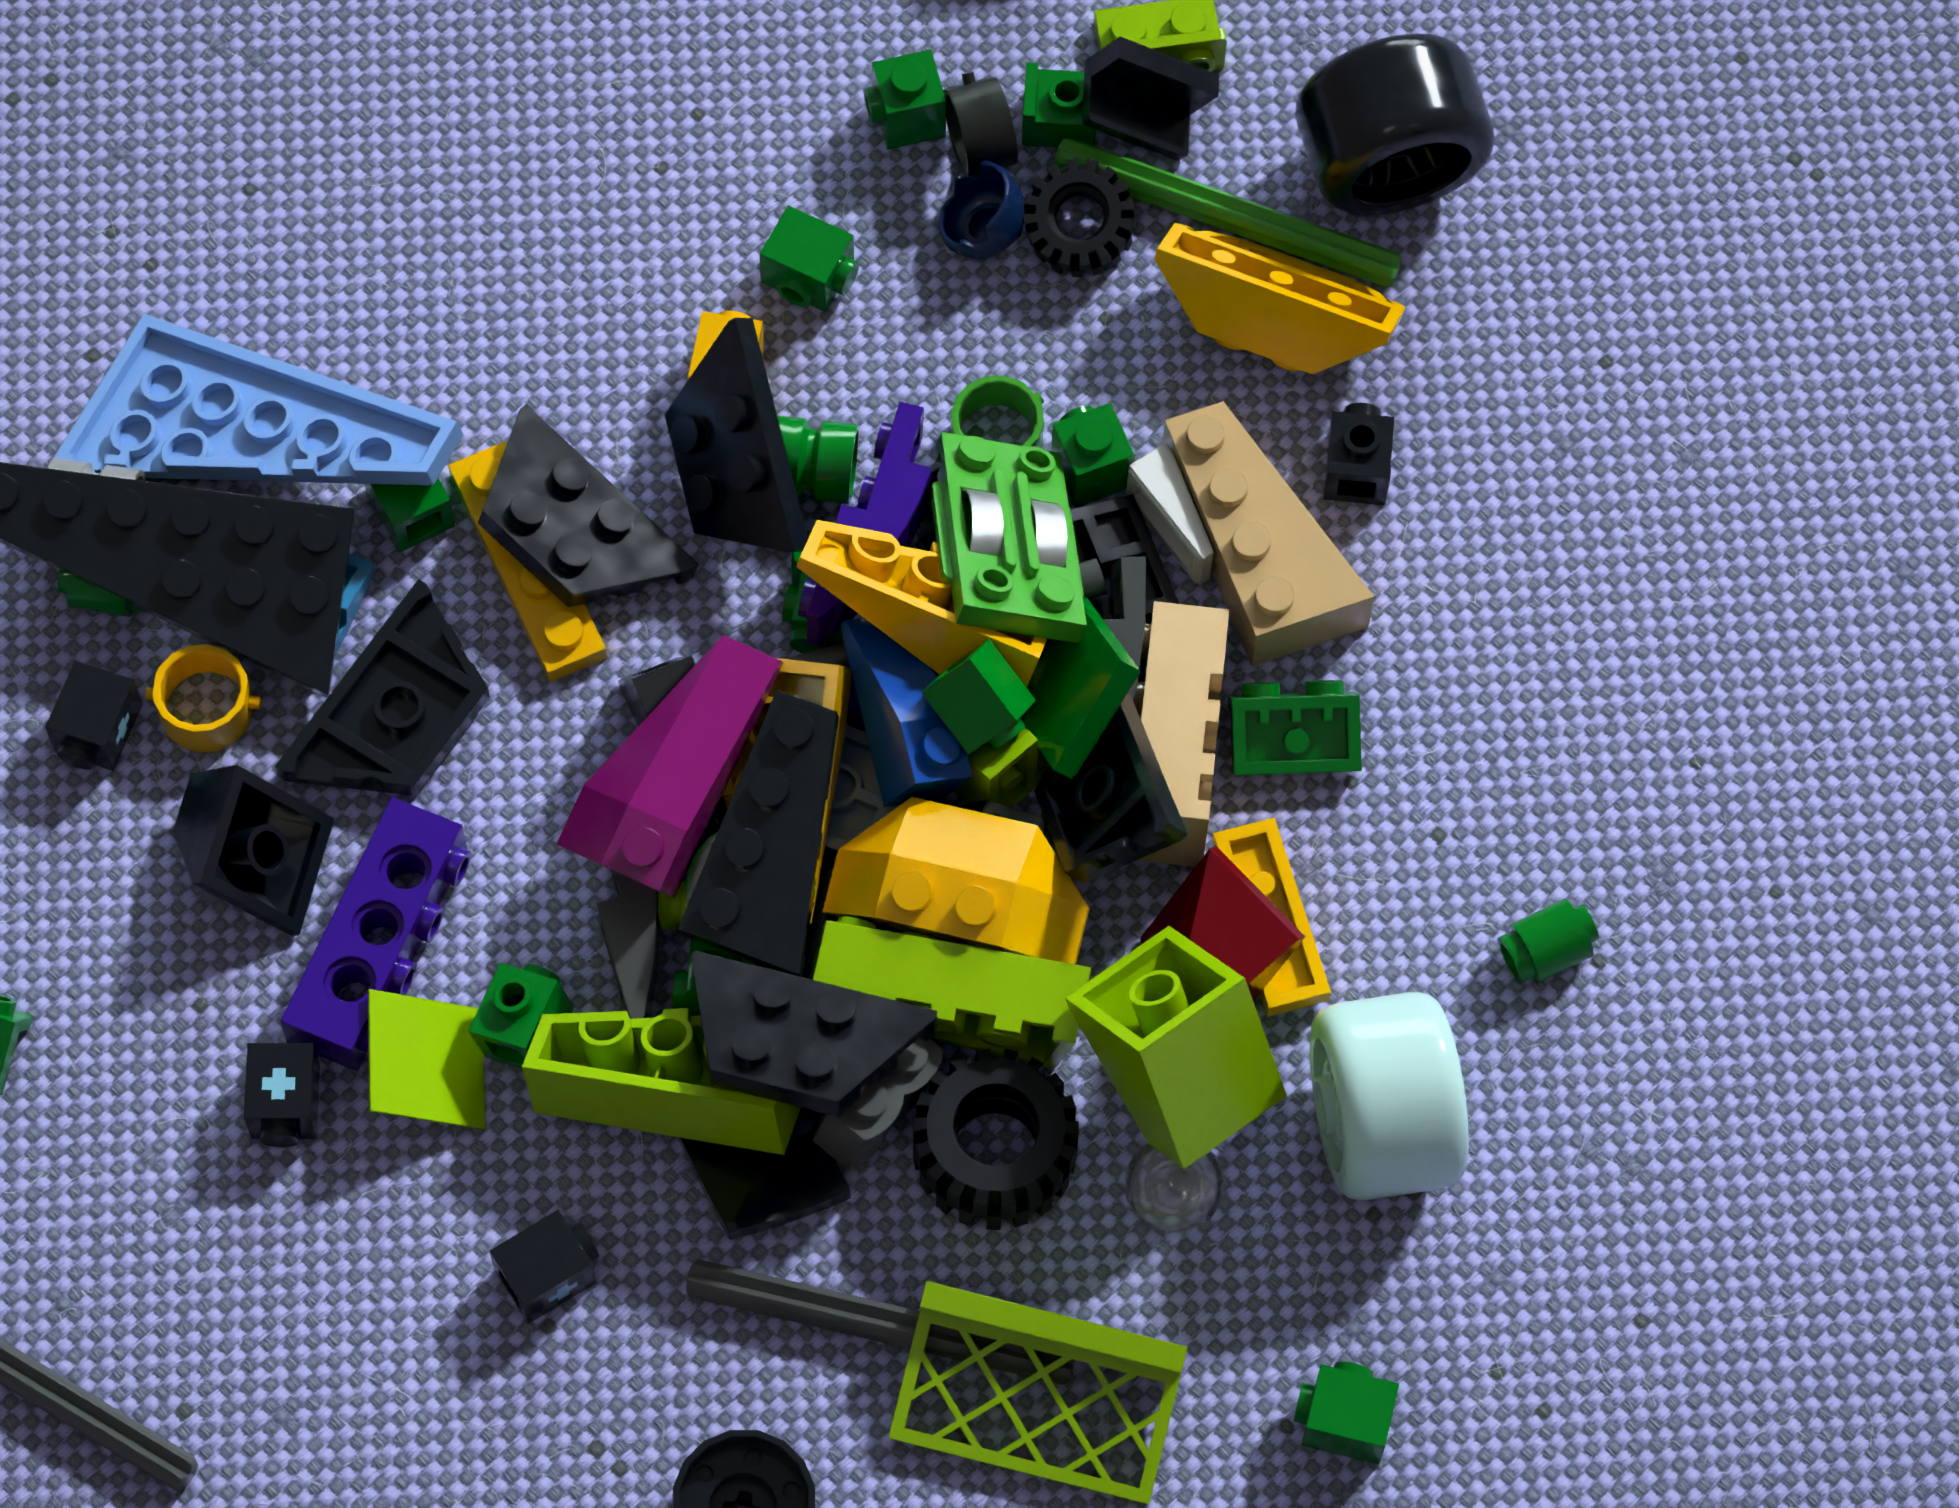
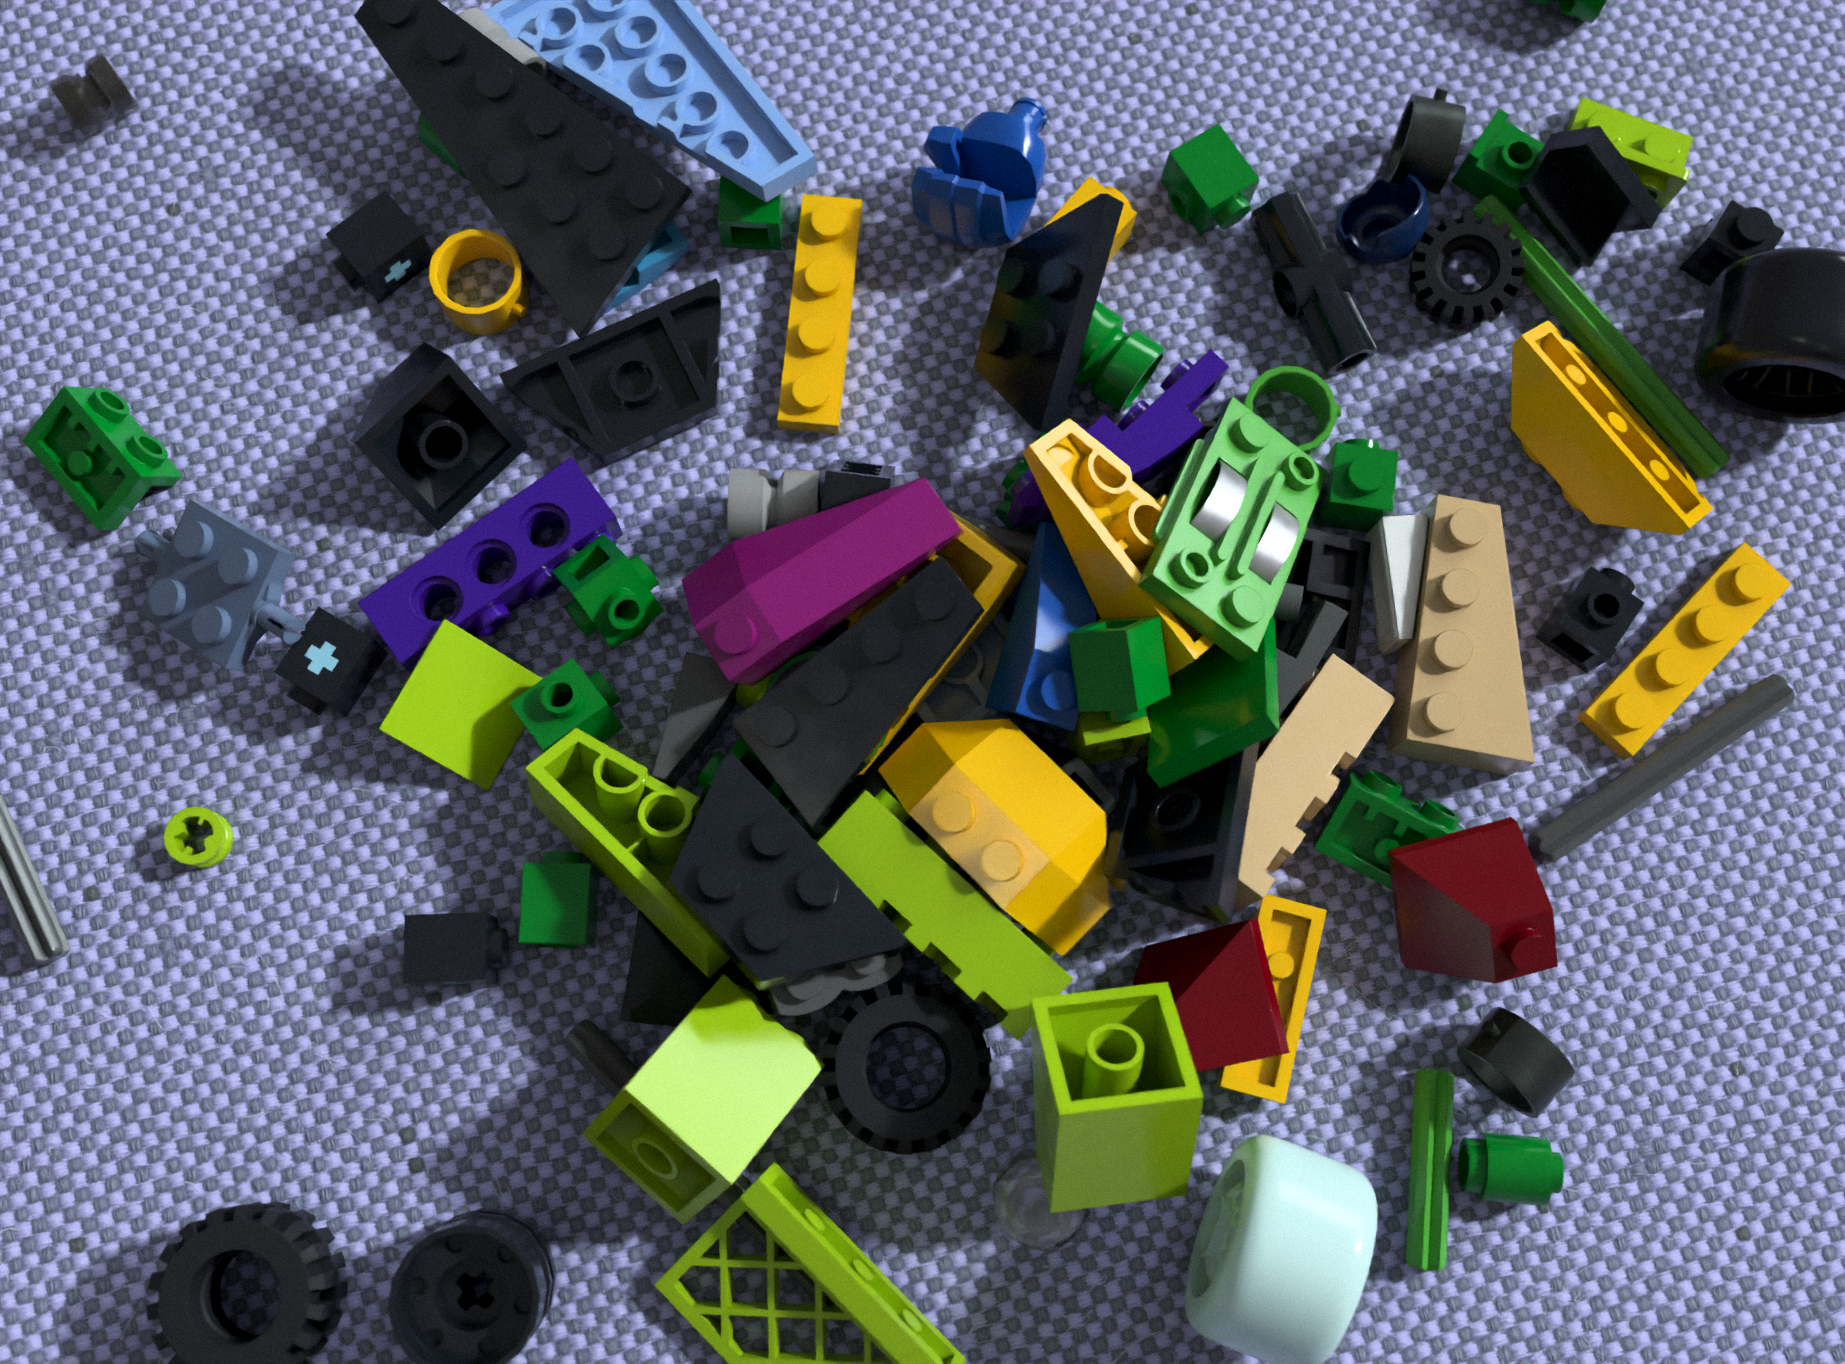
camera: 25 degrees right, 10 degrees up
(140, 1079) = (218, 586): none -> sand blue plate
(274, 1300) = (181, 829): none -> lime bush
(494, 894) = (609, 592): none -> green brick
(573, 522) = (874, 300): black wing -> none
(582, 747) = (764, 503): none -> light grey wheel
(605, 363) = (982, 176): none -> blue piece
(613, 1177) = (559, 902): none -> green brick
(841, 1253) = (705, 1100): none -> slope
(907, 99) = (1376, 87): green brick -> none
(952, 300) = (1312, 283): none -> black piece
(1291, 64) = (1734, 233): none -> black brick
(1390, 743) = (1472, 905): none -> dark red slope
(1455, 441) = (1683, 651): none -> yellow plate
(1485, 981) = (1430, 1170): none -> bright green axle
(1490, 550) = (1660, 769): none -> dark grey axle
(1501, 850) = (1515, 1062): none -> pearl dark grey piece

